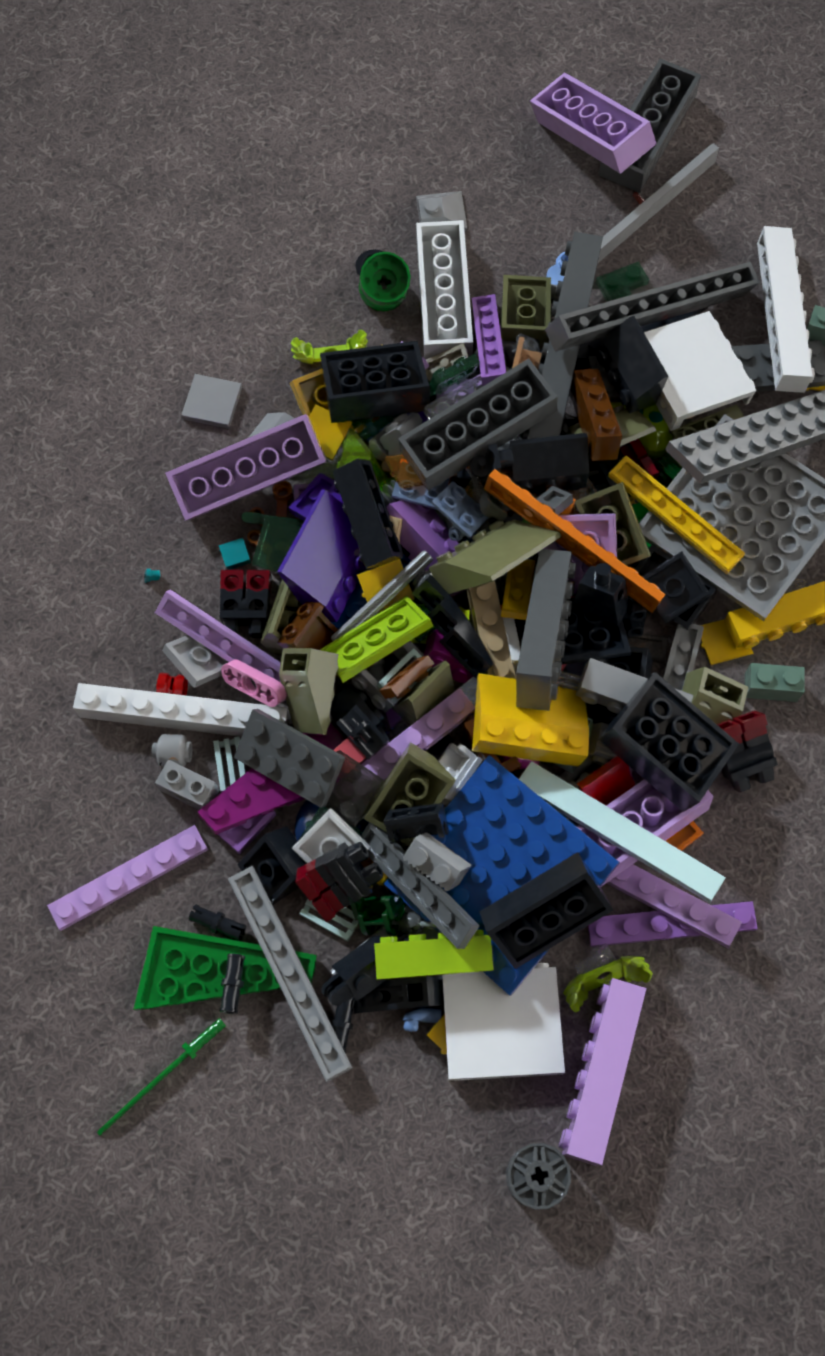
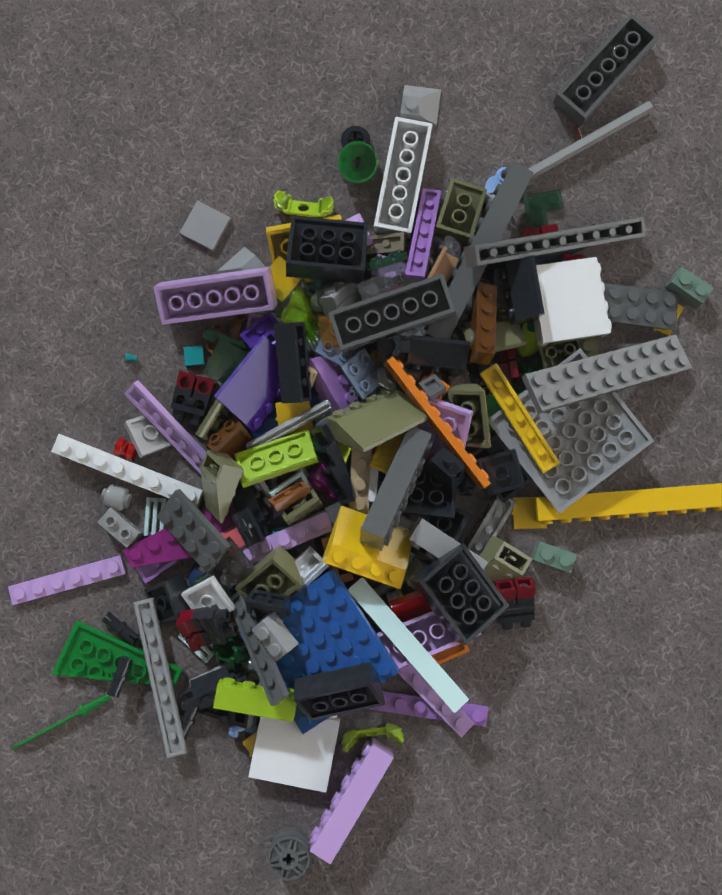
camera: 10 degrees right, 15 degrees up
(268, 689) = (182, 465): bright pink beam -> none
(593, 122) = (558, 62): lavender brick -> none
(784, 310) = (657, 263): white brick -> none

